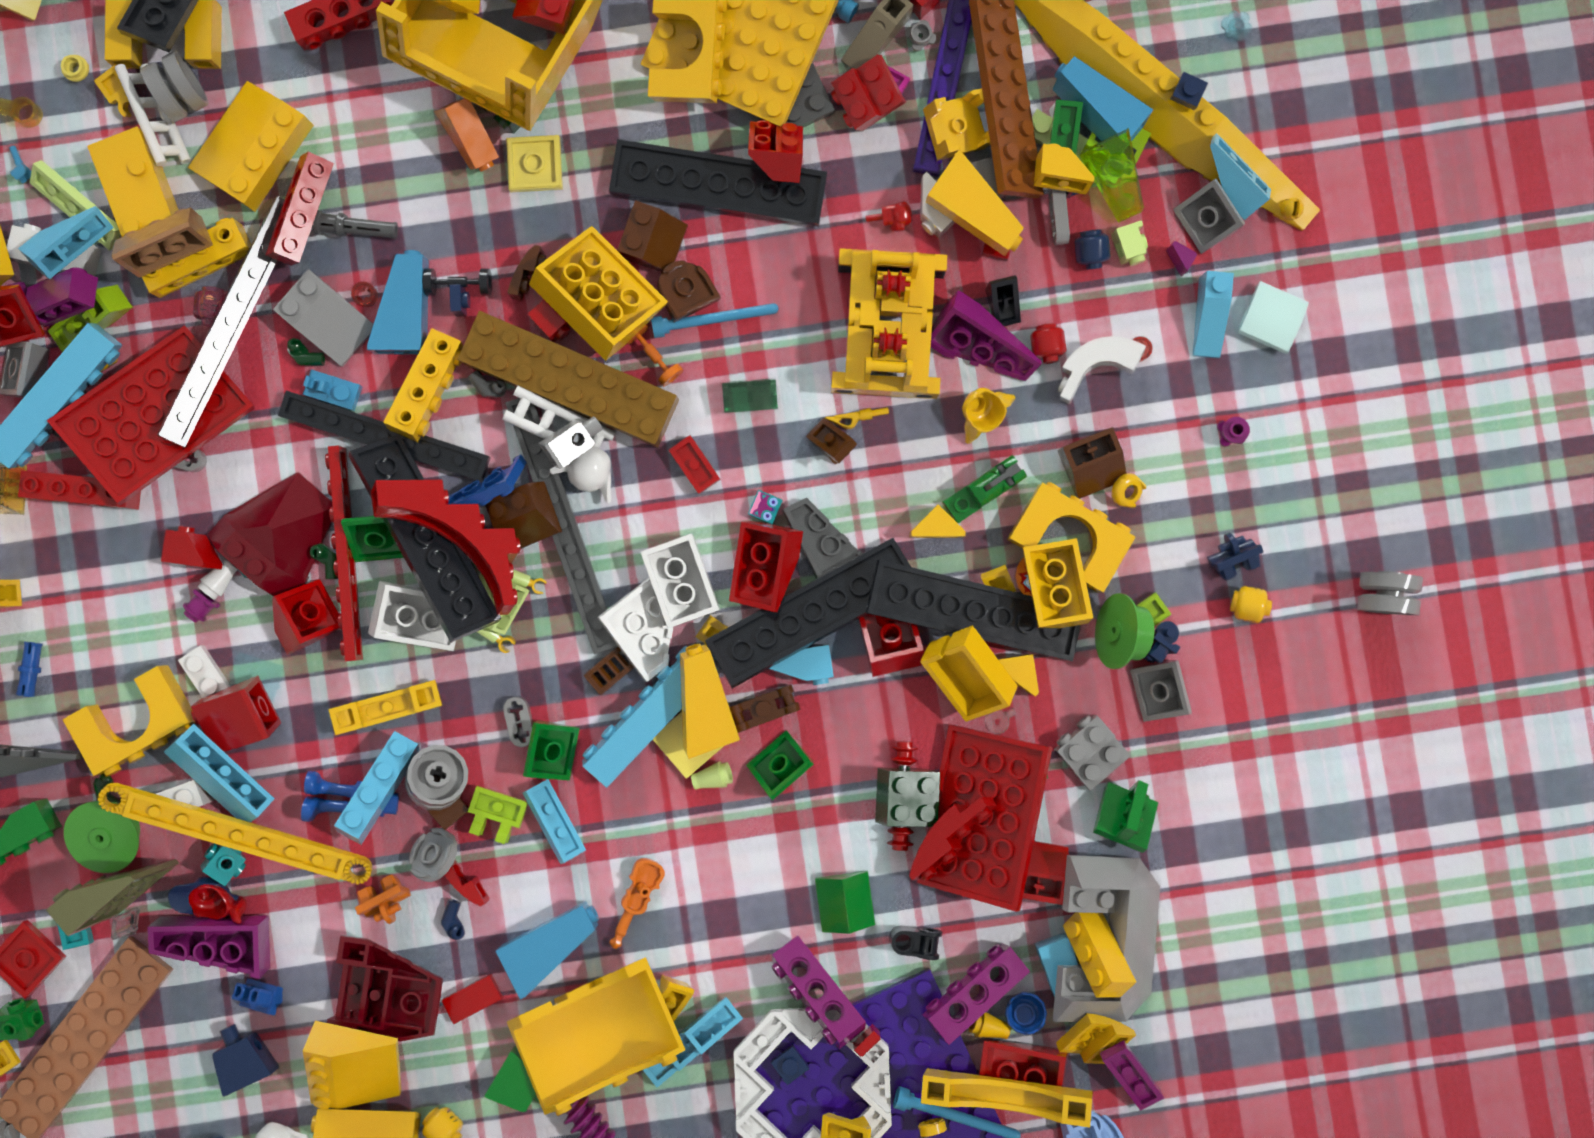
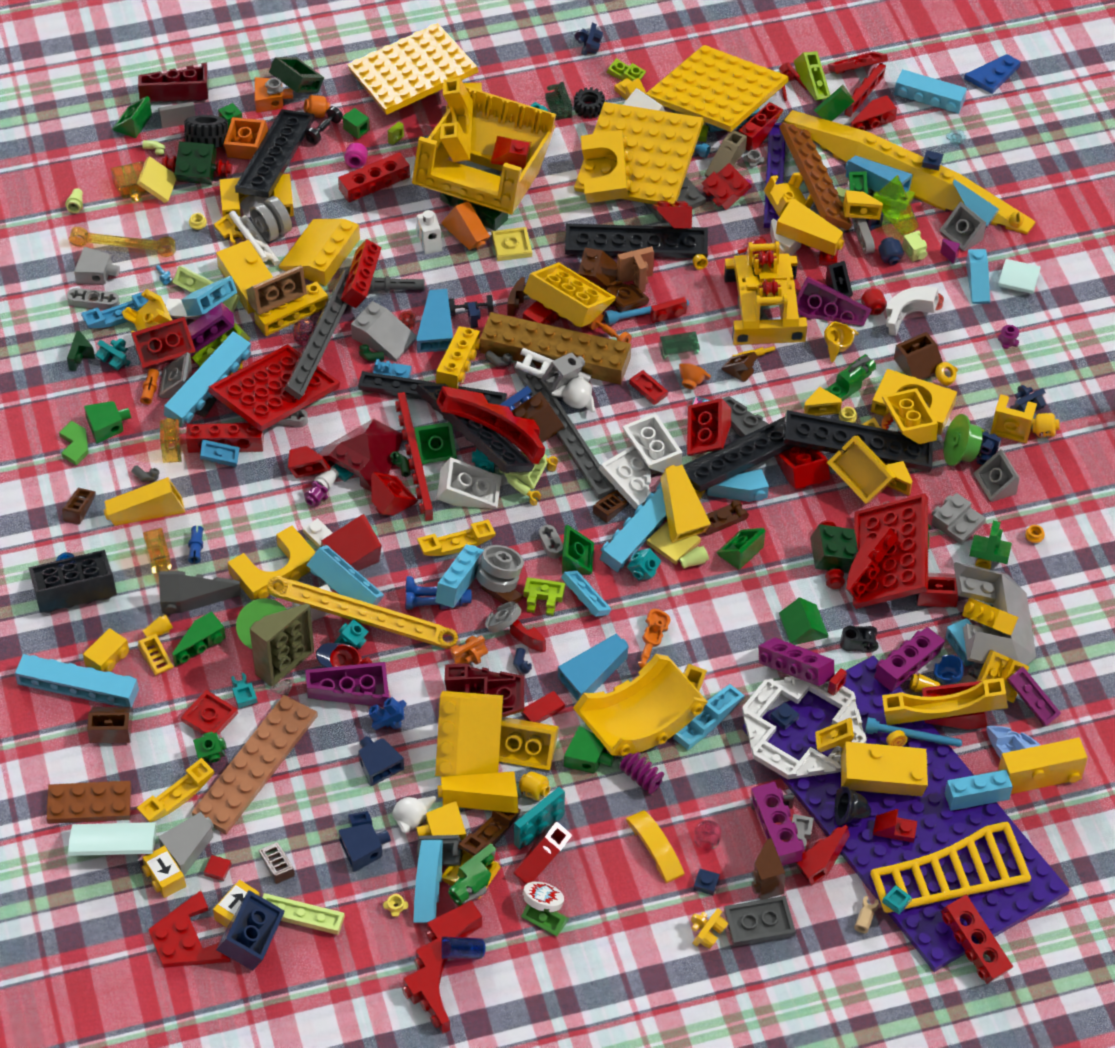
camera: 10 degrees left, 35 degrees down
(69, 517) = (219, 453): none -> dark azure plate
(409, 132) = (425, 225): none -> white torso
(443, 1059) = (527, 743): none -> yellow slope
(639, 787) = (644, 564): none -> teal brick
(709, 243) = (636, 267): none -> nougat bracket
(756, 323) = (668, 309): none -> red plate
(759, 454) = (692, 375): none -> orange piece
(805, 233) = (700, 261): none -> yellow hinge
(977, 542) = (848, 414): none -> light yellow plate
(1188, 595) = (1012, 423): none -> yellow panel
(1201, 792) = (1034, 534): none -> light orange plate

